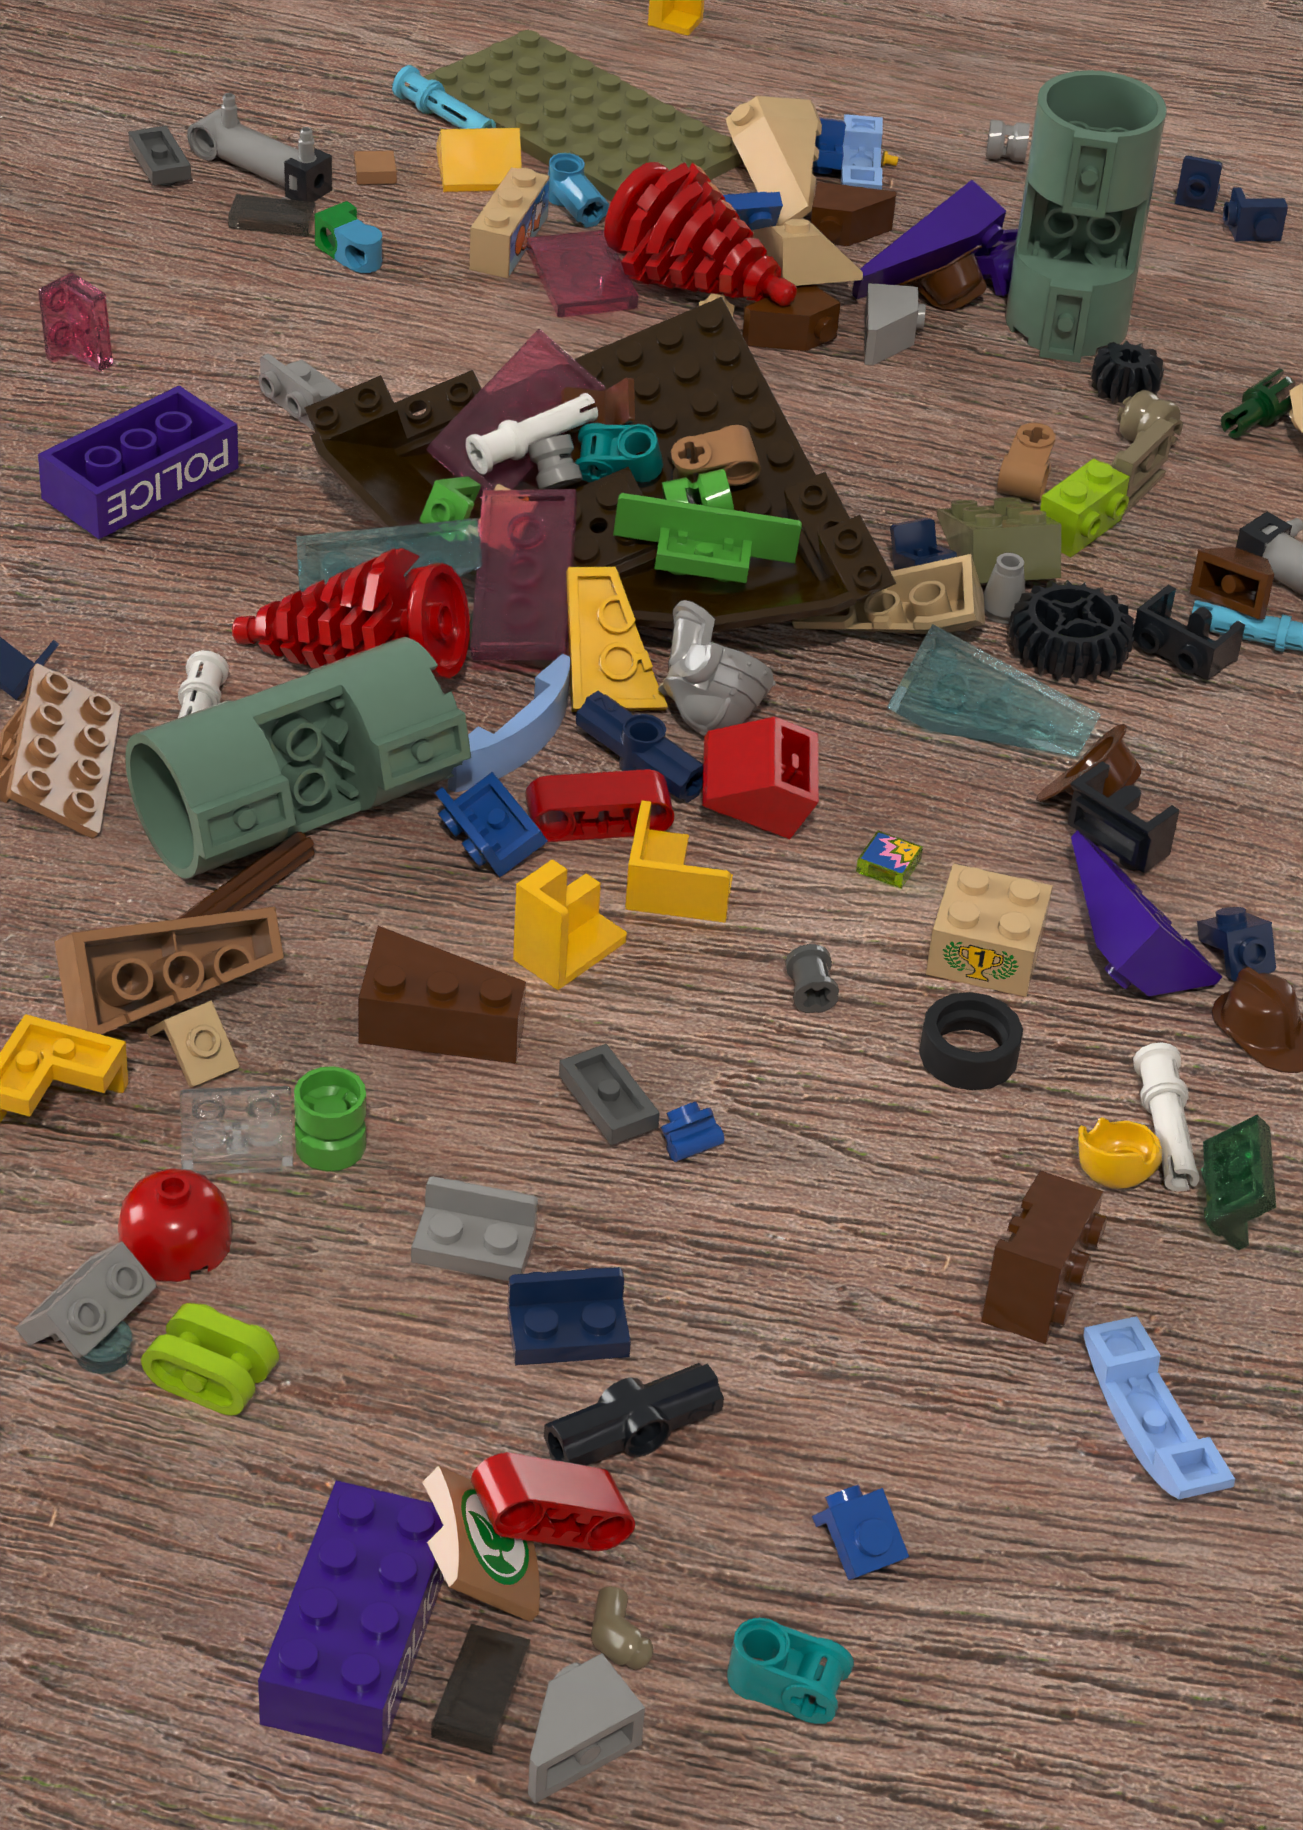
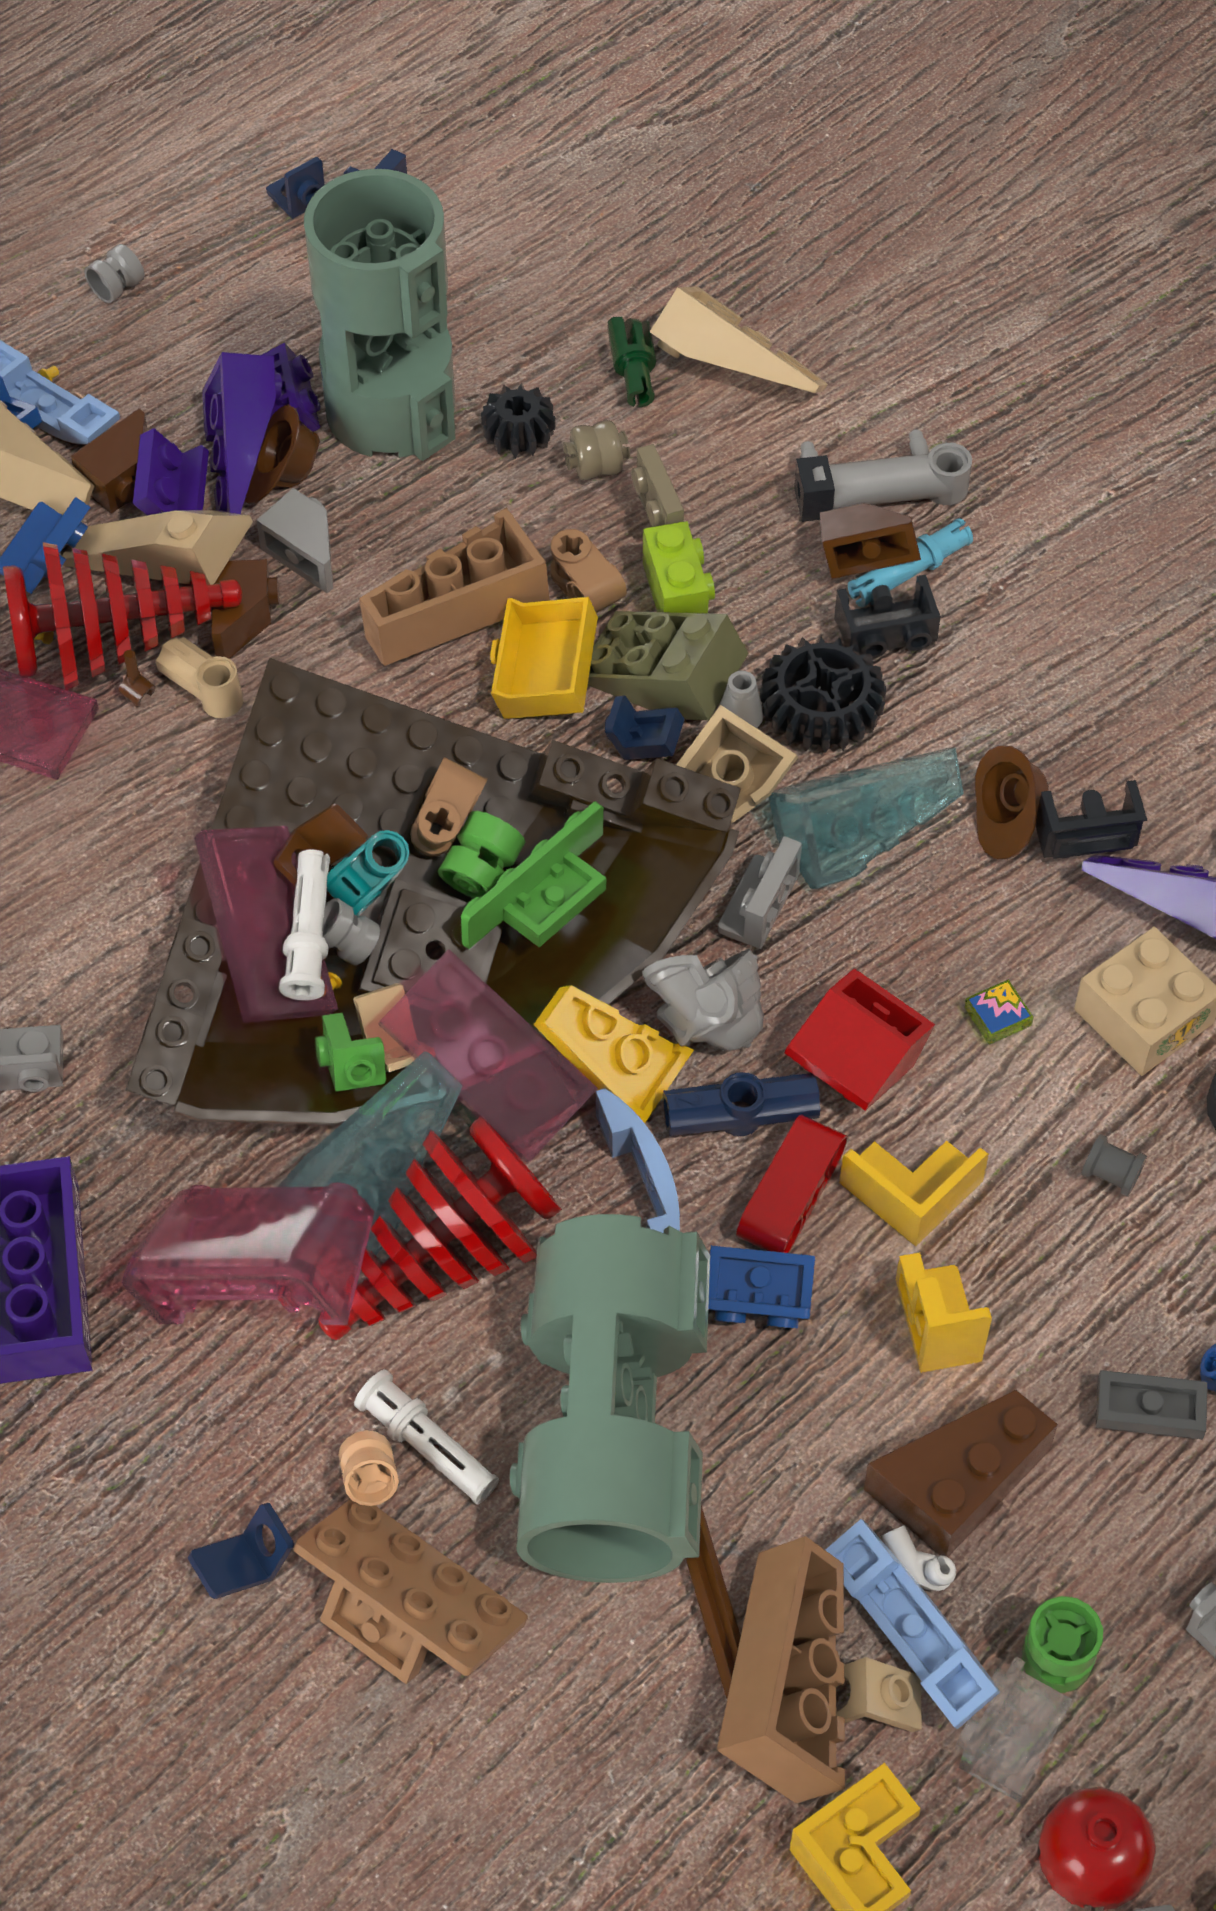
camera: 50 degrees left, 15 degrees up
(137, 686) = (368, 1468): none -> light nougat wheel
(249, 538) = (253, 1246): none -> clear pink windscreen
(297, 995) = (913, 1624): none -> light blue slope
(331, 1019) = (928, 1570): none -> white arm
(671, 303) = (134, 684): none -> reddish brown hand
(845, 674) = (762, 894): none -> light grey bracket
(859, 231) = (168, 477): none -> dark purple bracket
(924, 474) = (543, 657): none -> yellow container
(927, 405) = (454, 591): none -> medium nougat wedge

